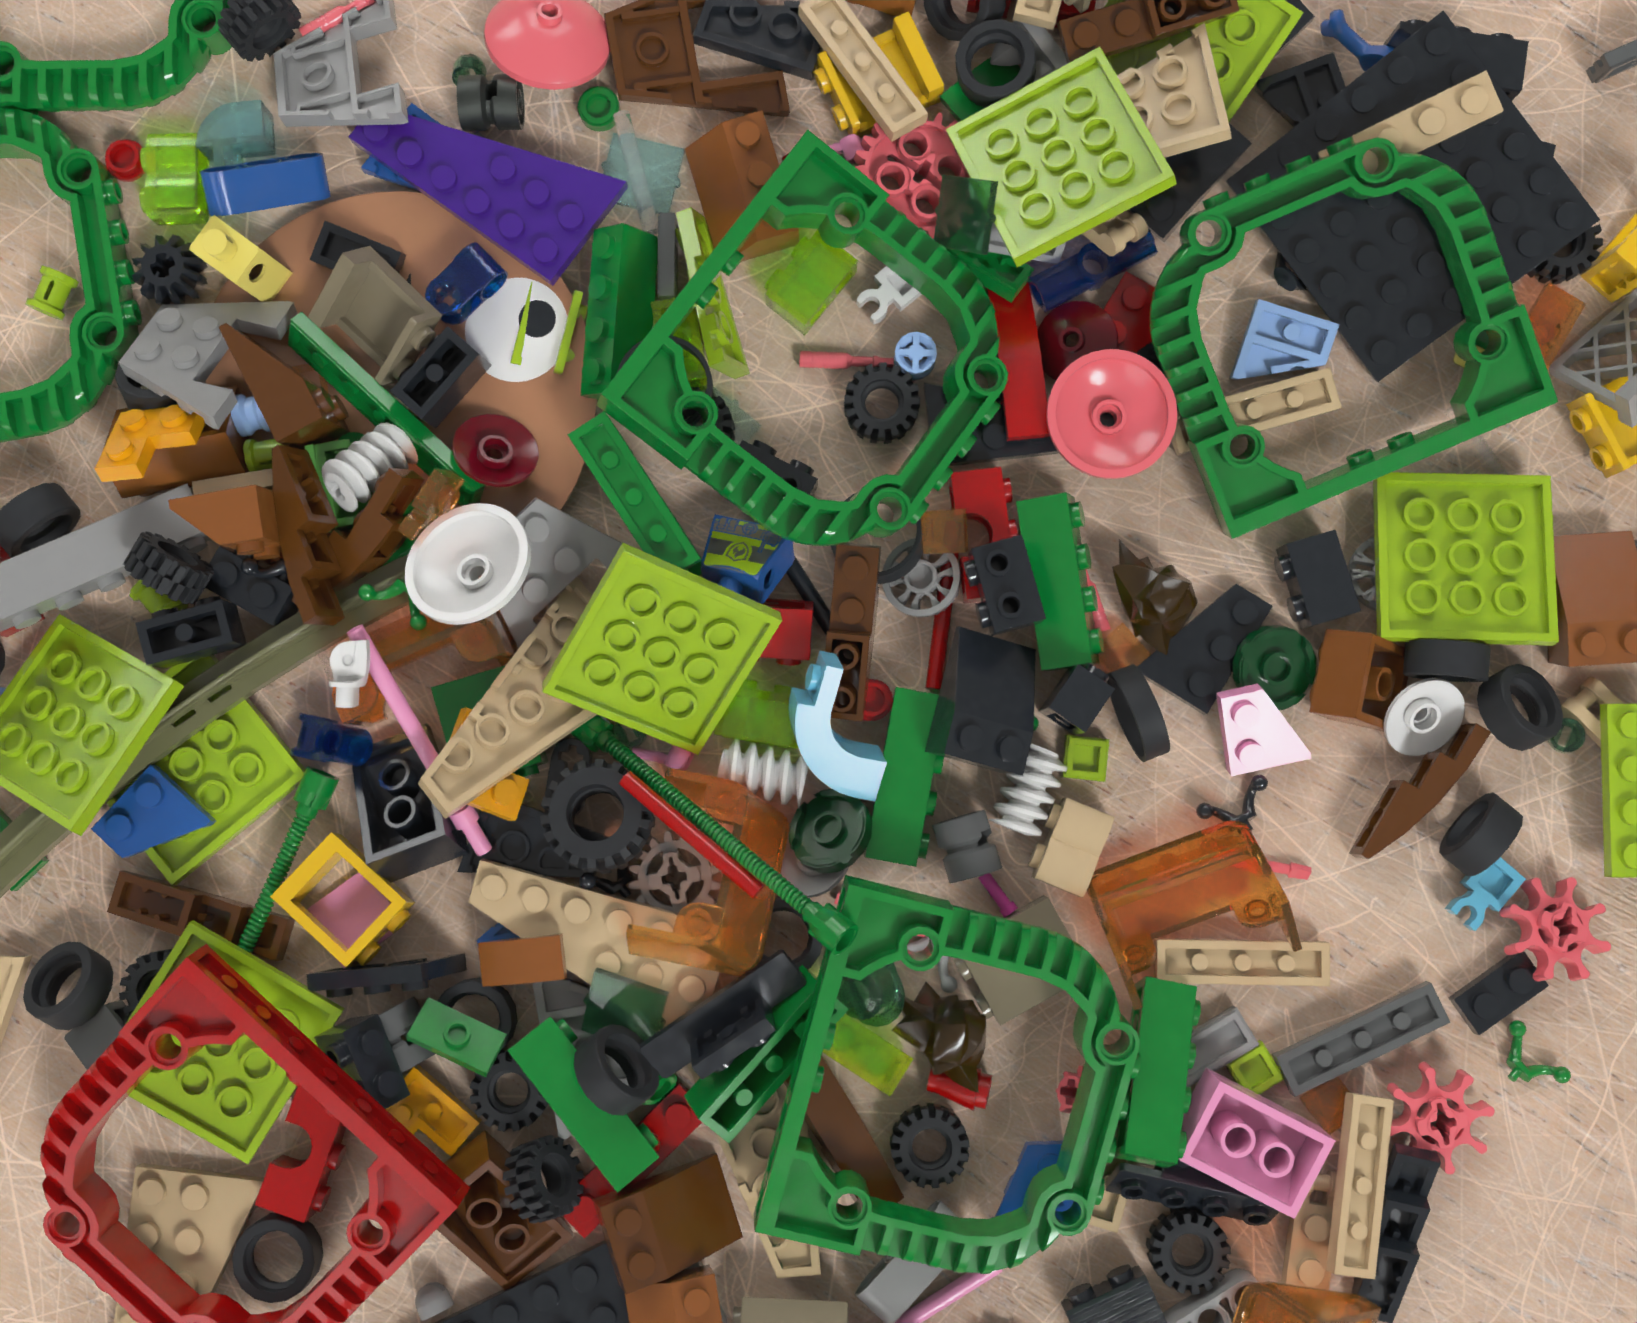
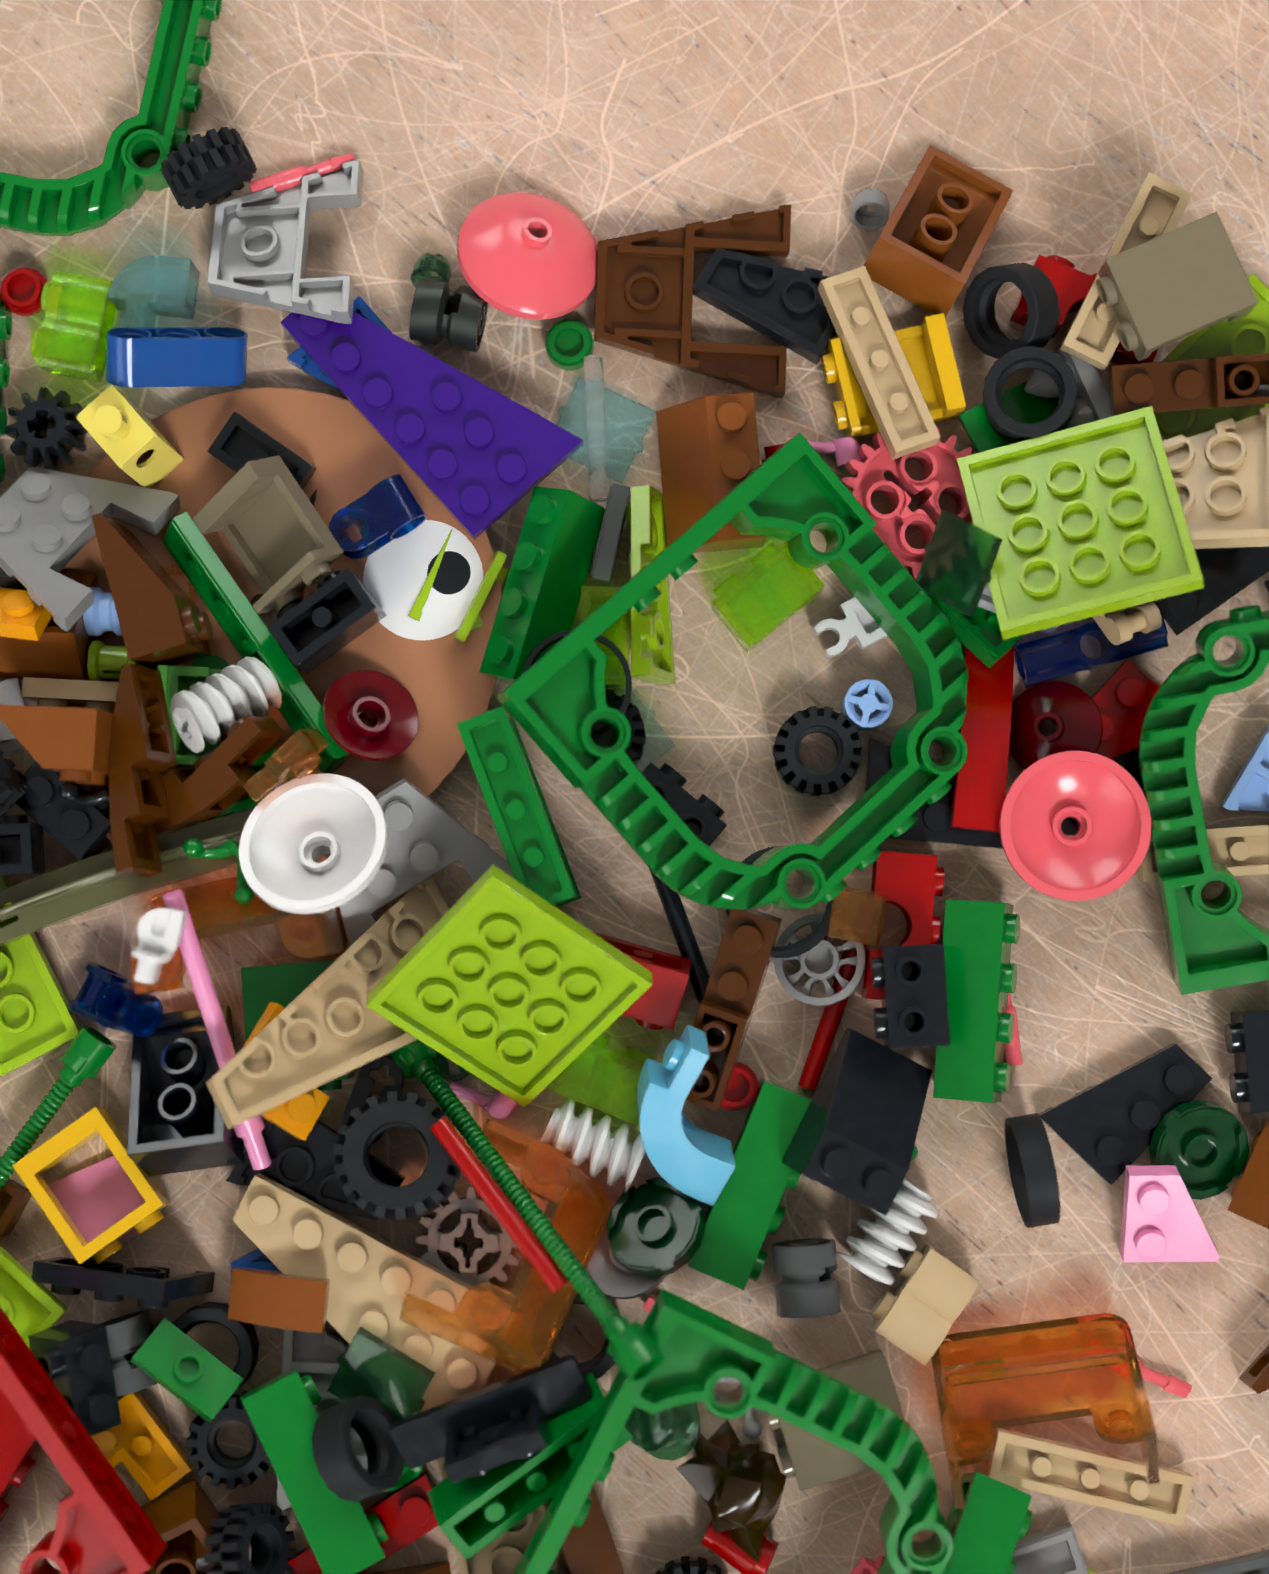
camera: 15 degrees right, 0 degrees up
(588, 881) = (372, 1225): black piece -> none
(745, 557) = (623, 899): torso -> none
(839, 360) = (780, 690): coral piece -> none
(868, 1055) = (645, 1493): clear neon green brick -> none
(1005, 905) = (836, 1354): dark pink piece -> none
(1078, 698) = (967, 1138): black brick -> none
(1085, 758) = (962, 1204): lime tile -> none
(1122, 649) = (1030, 1091): clear orange tile -> none
(1153, 598) = (1078, 1042): dark brown hair -> none
(1258, 783) = (1152, 1276): black piece -> none

